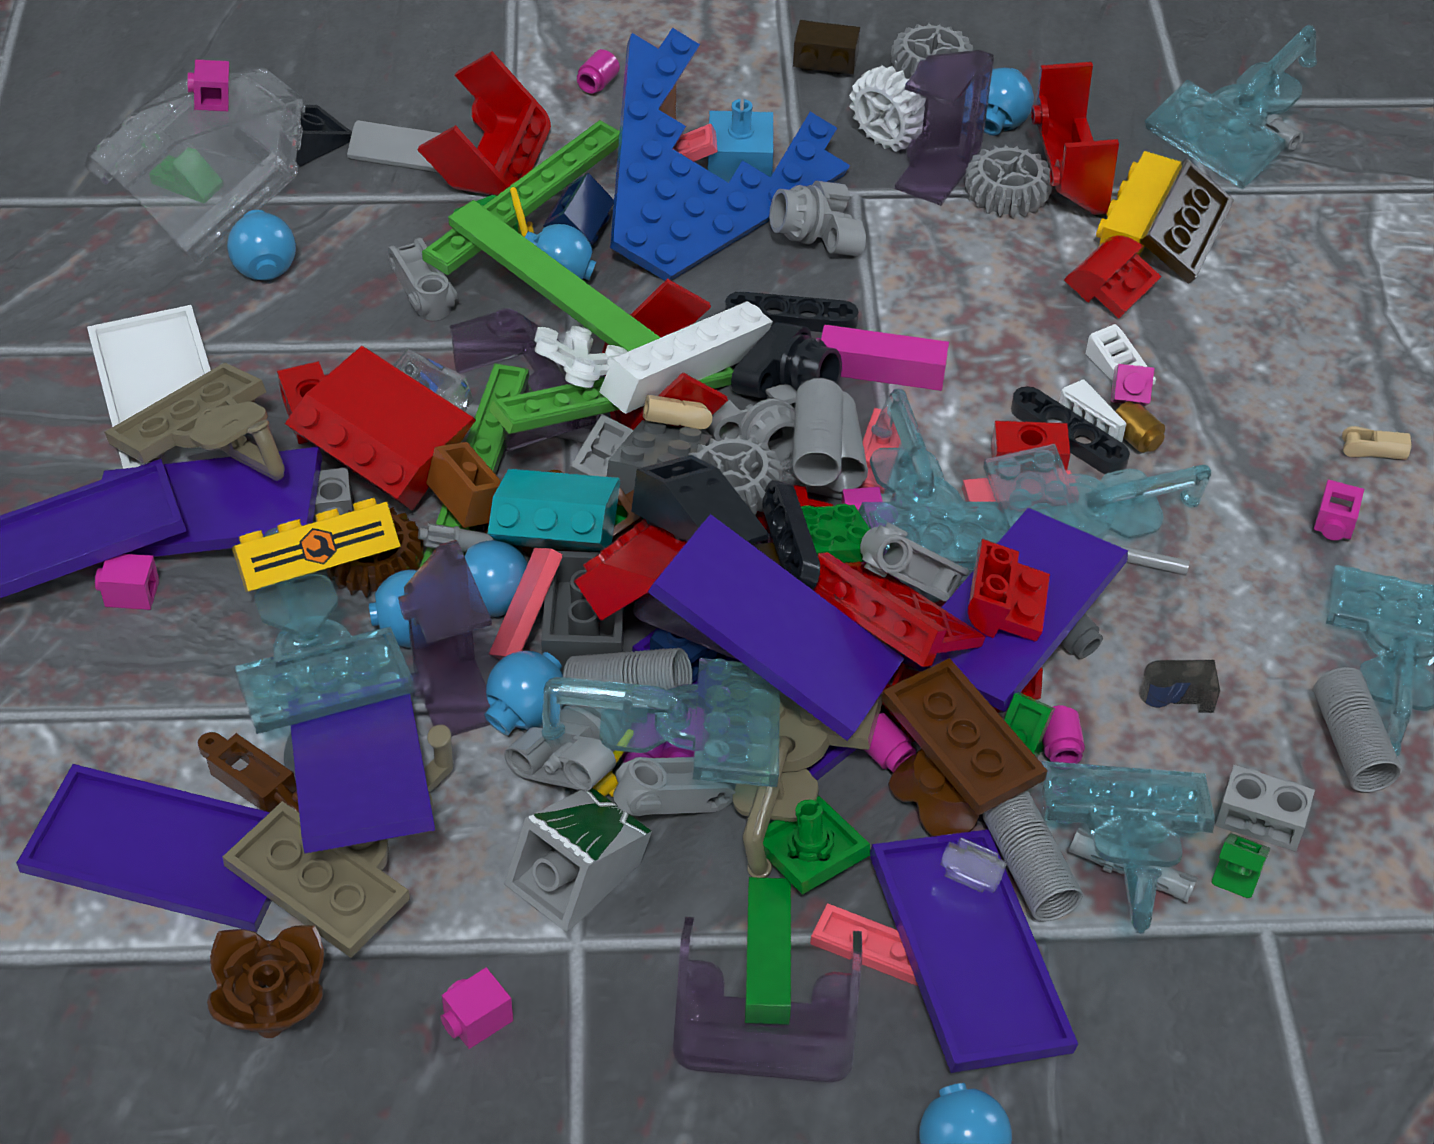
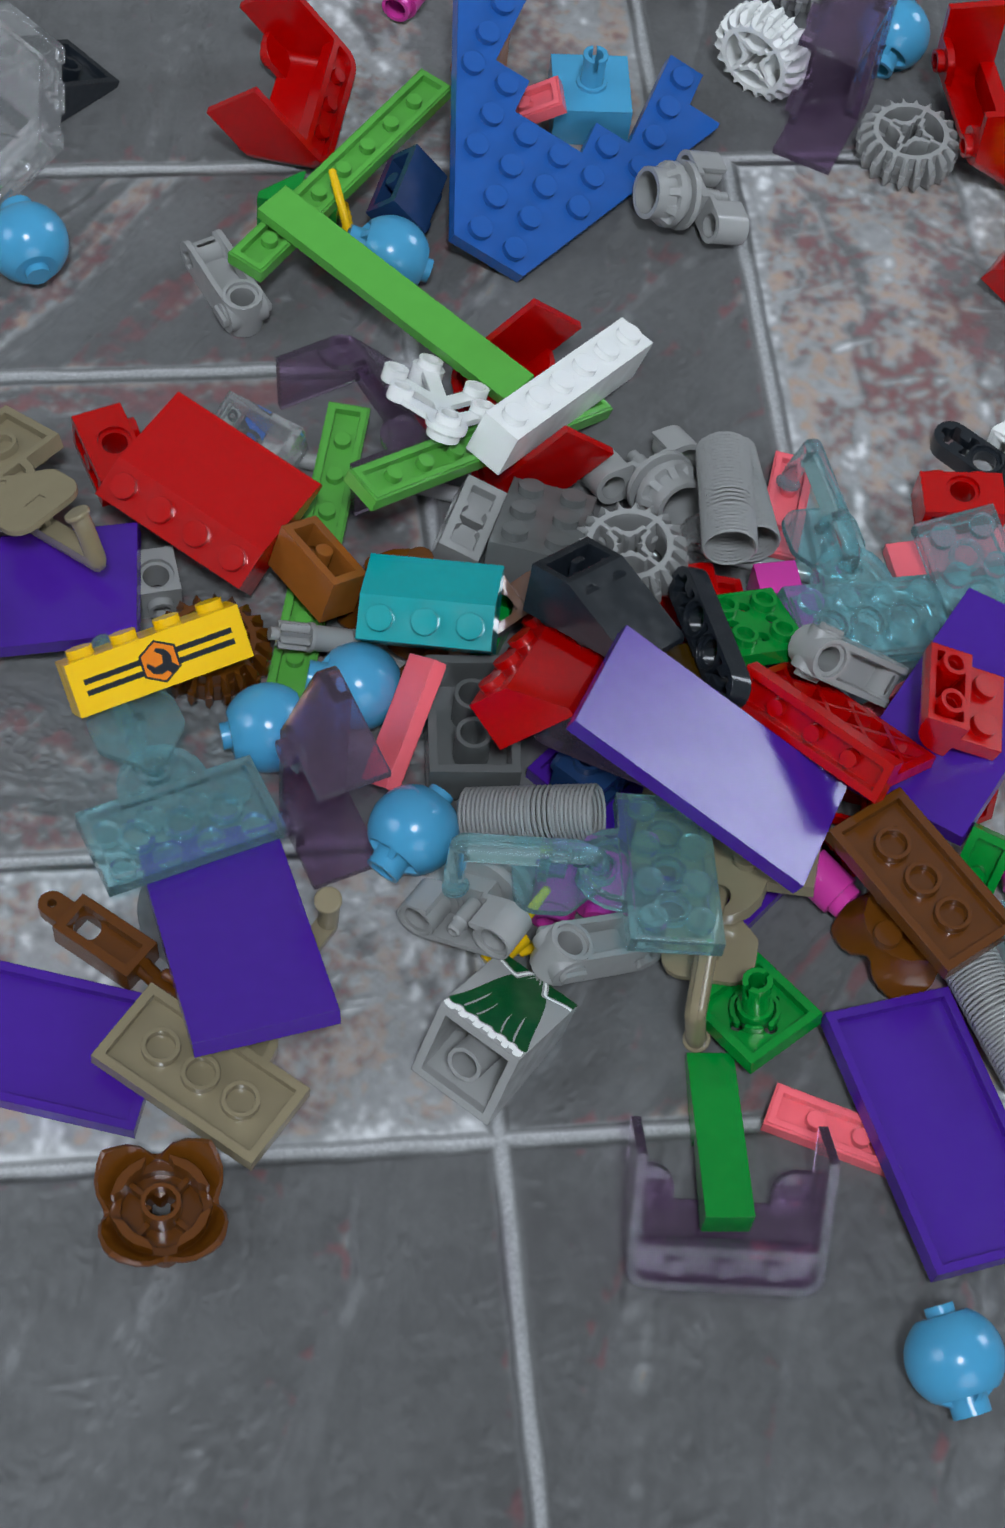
camera: 10 degrees left, 10 degrees up
(389, 145) = (169, 97): light grey slope -> none
(476, 1008) = (399, 1226): dark pink brick -> none
(676, 412) = (556, 471): tan bar -> none
(785, 357) = (675, 390): black beam -> none
(794, 305) = (668, 316): black beam -> none
(889, 357) = (779, 384): dark pink brick -> none
(973, 865) = (938, 1035): clear brick -> none

